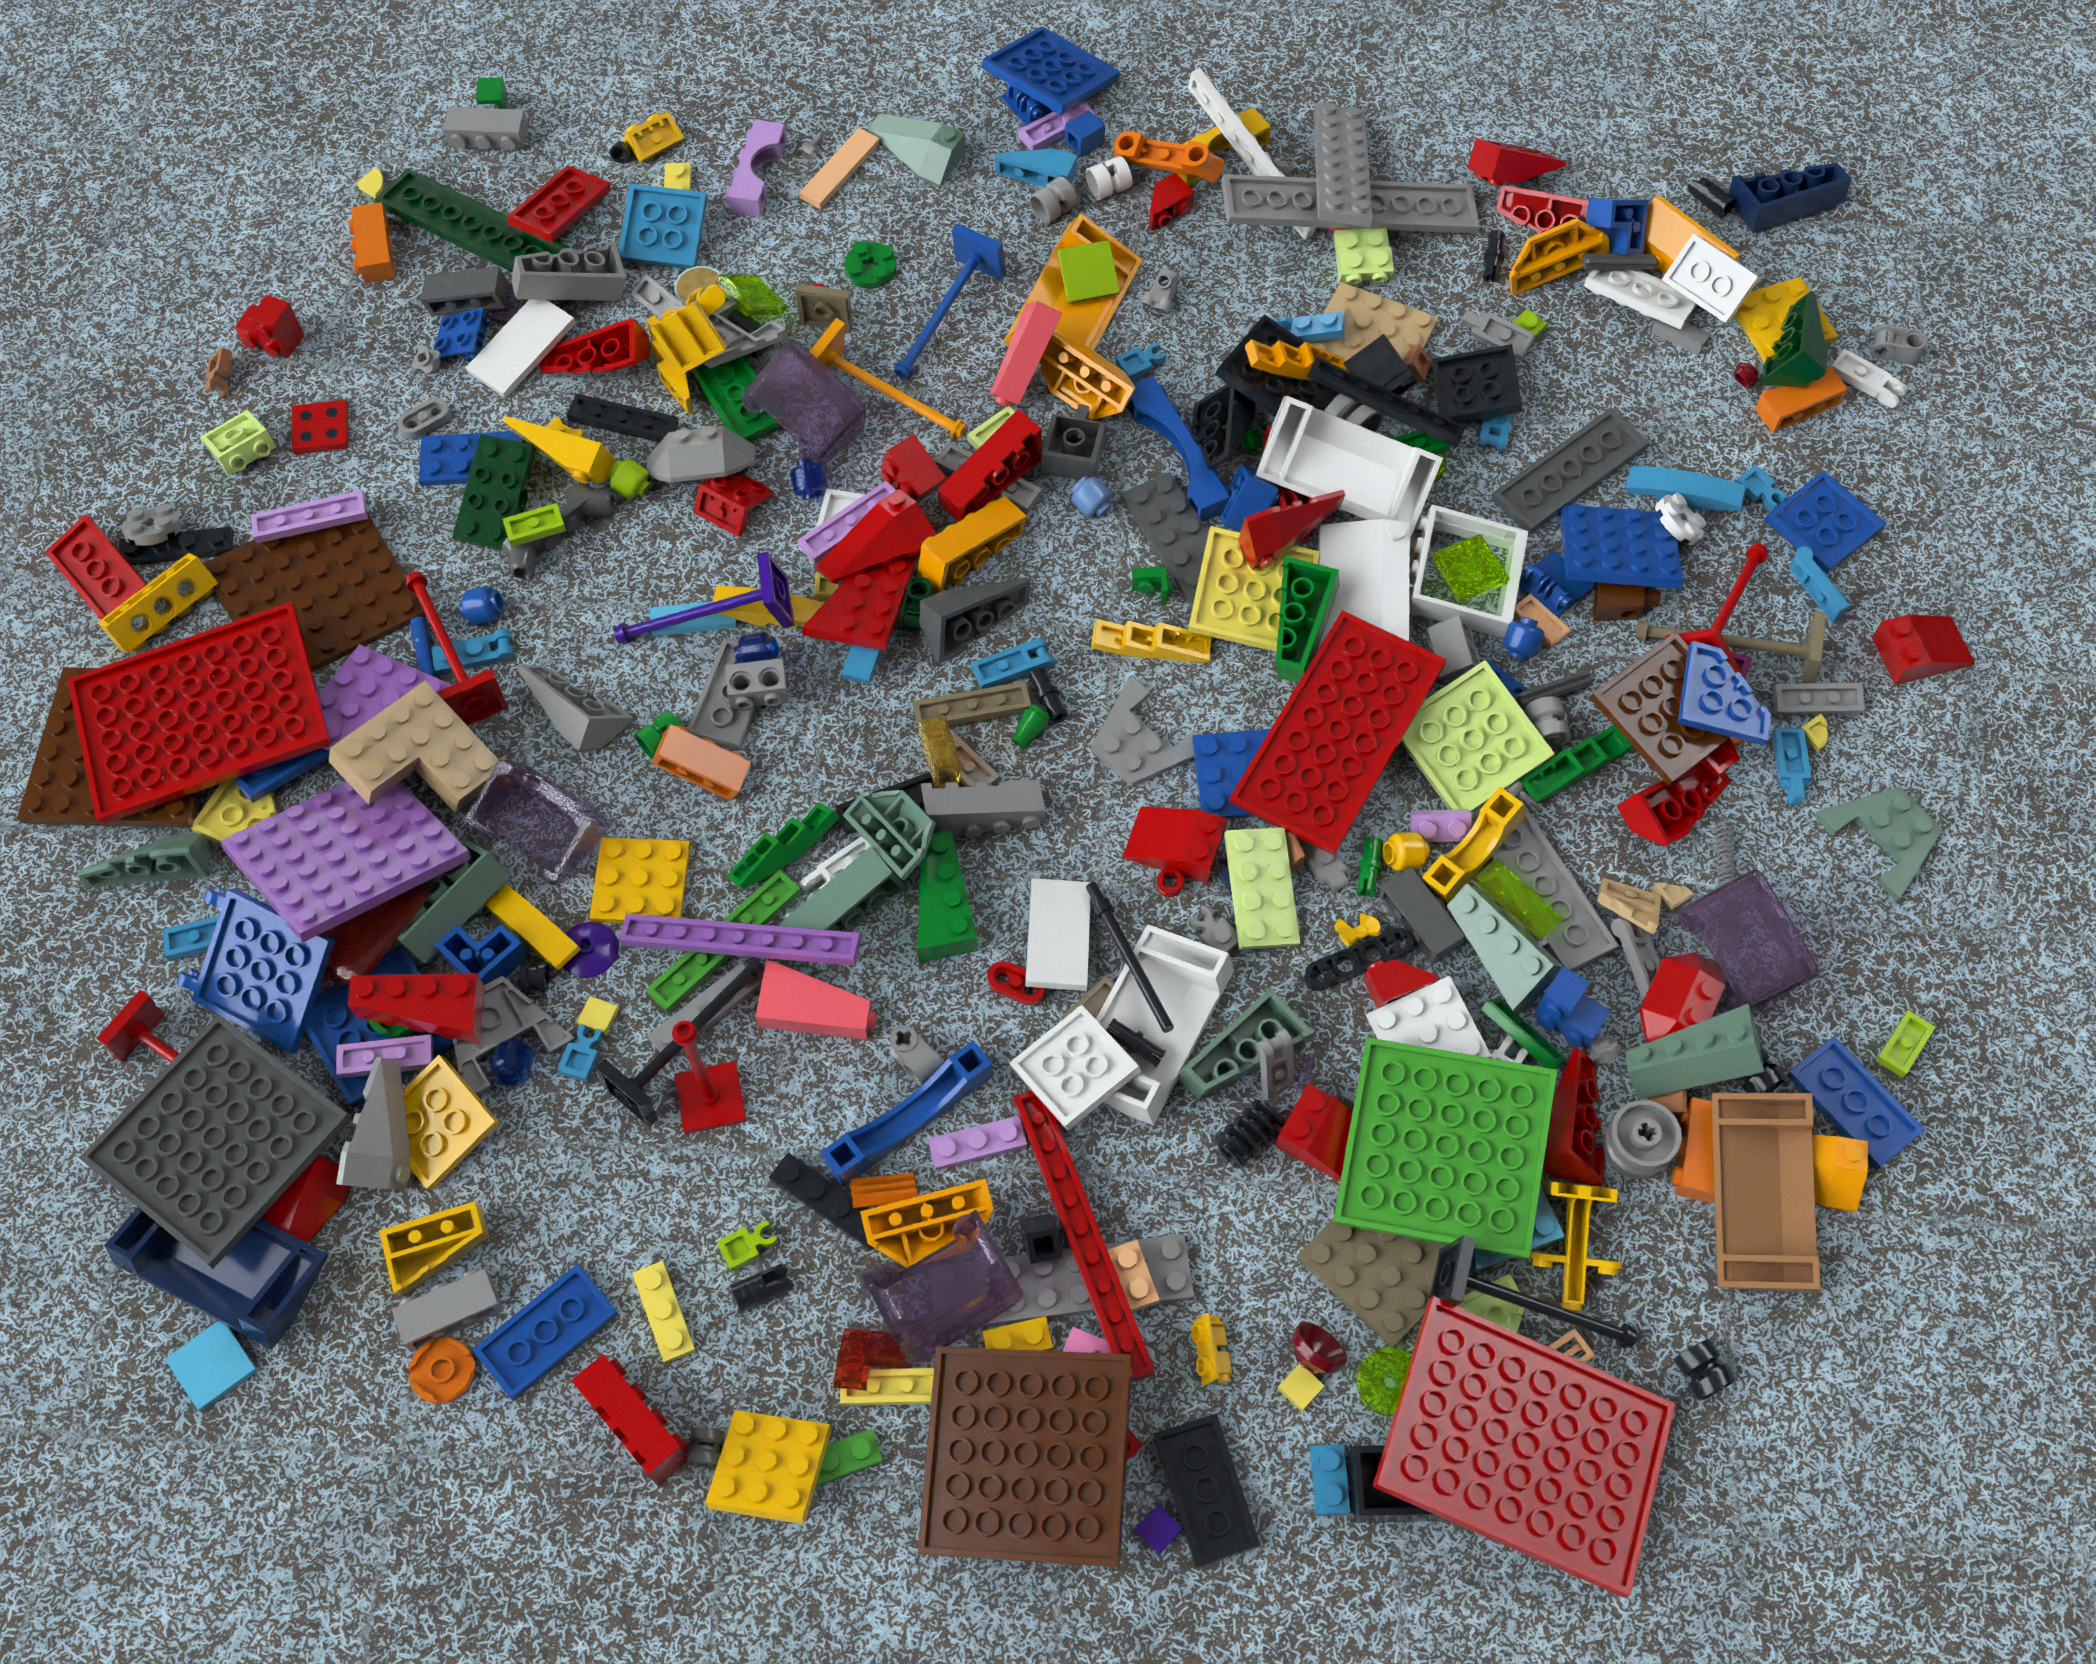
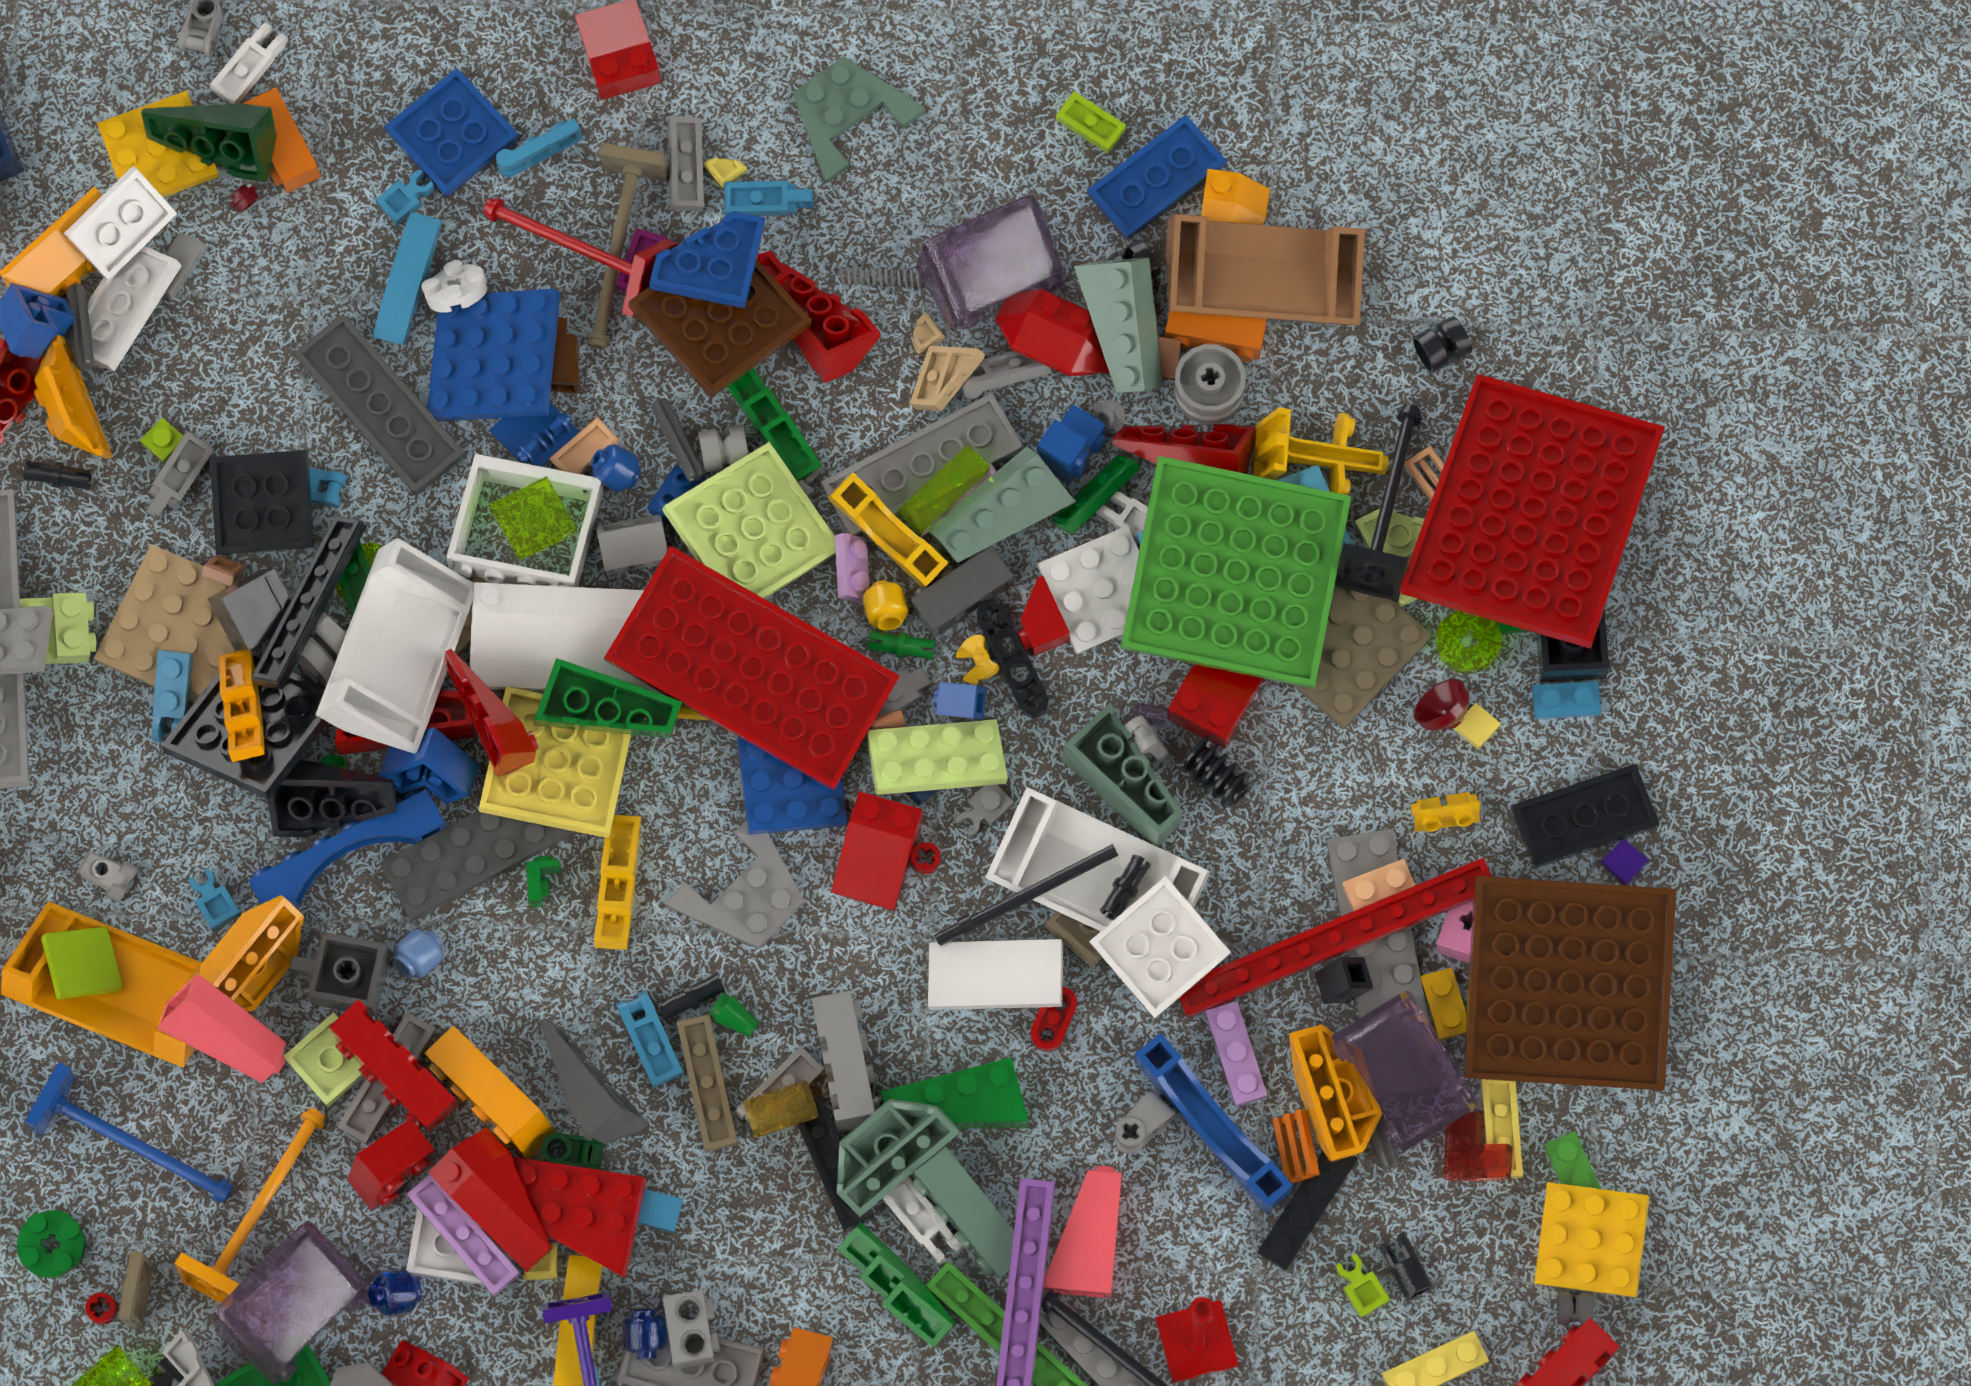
camera: 90 degrees left, 10 degrees up
(1315, 902) = (960, 700): none -> brick

